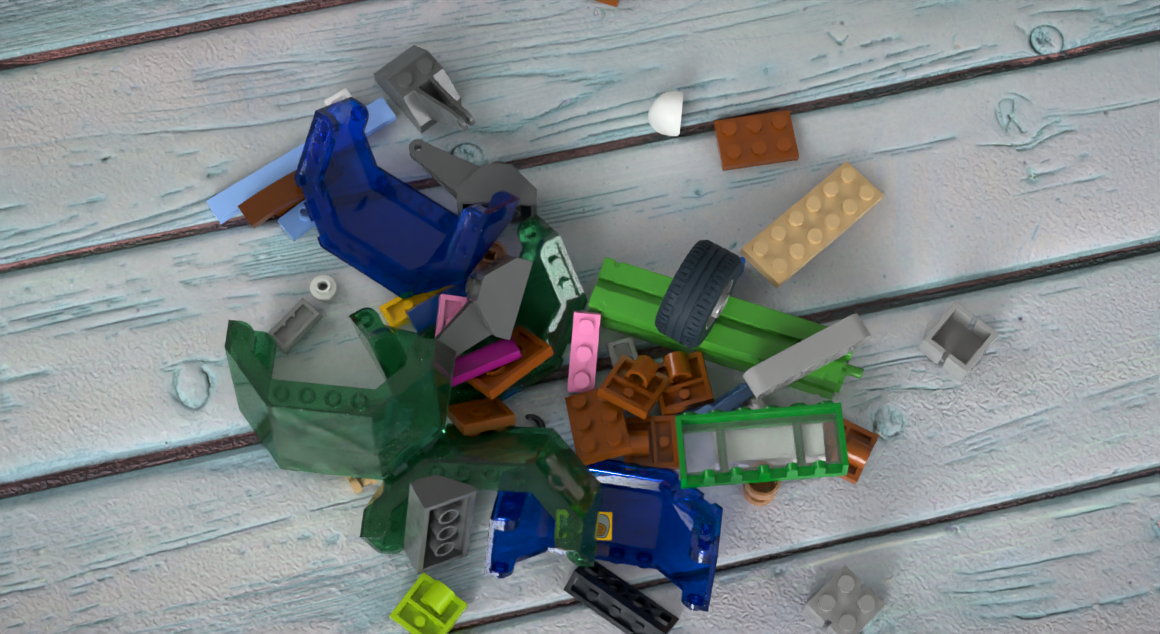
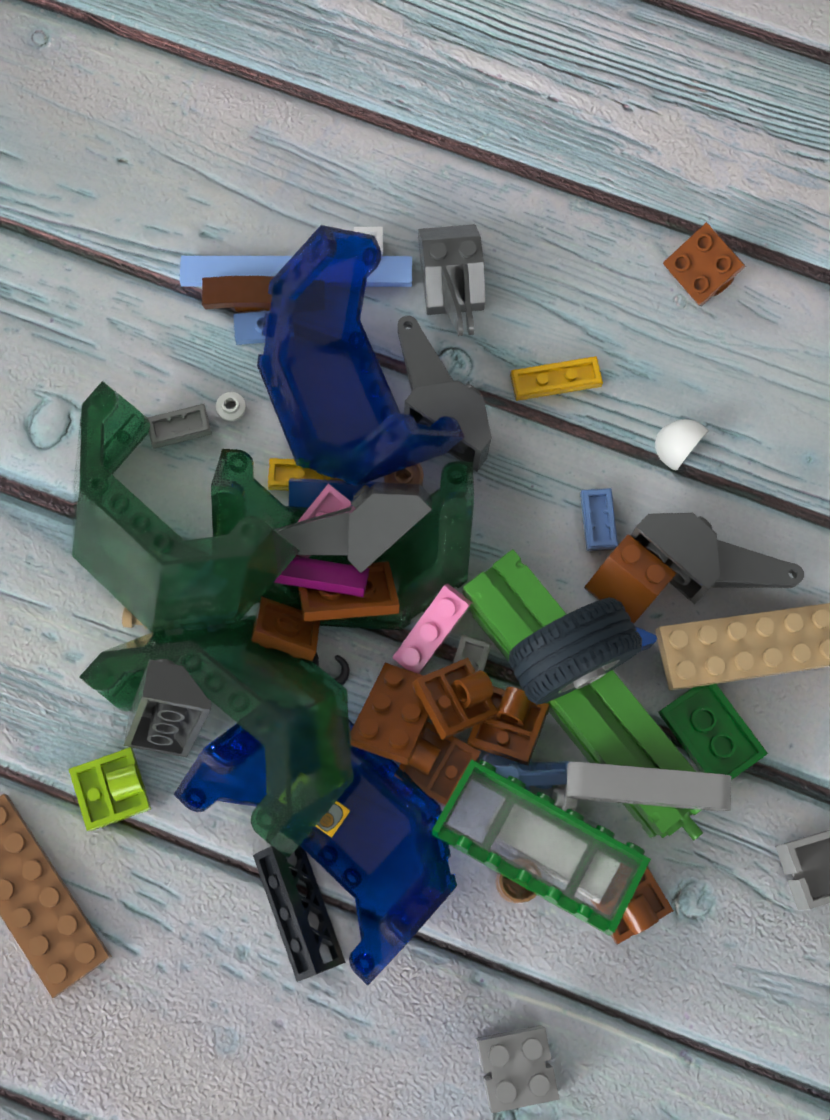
camera: 30 degrees right, 5 degrees up
(548, 122) = (556, 378): none -> yellow tile
(648, 202) = (598, 519): none -> medium blue plate
(697, 222) = (631, 577): none -> dark orange slope
(734, 188) = (703, 562): none -> dark grey slope
(756, 140) = (752, 520): dark orange plate -> none
(823, 297) = (712, 731): none -> green plate

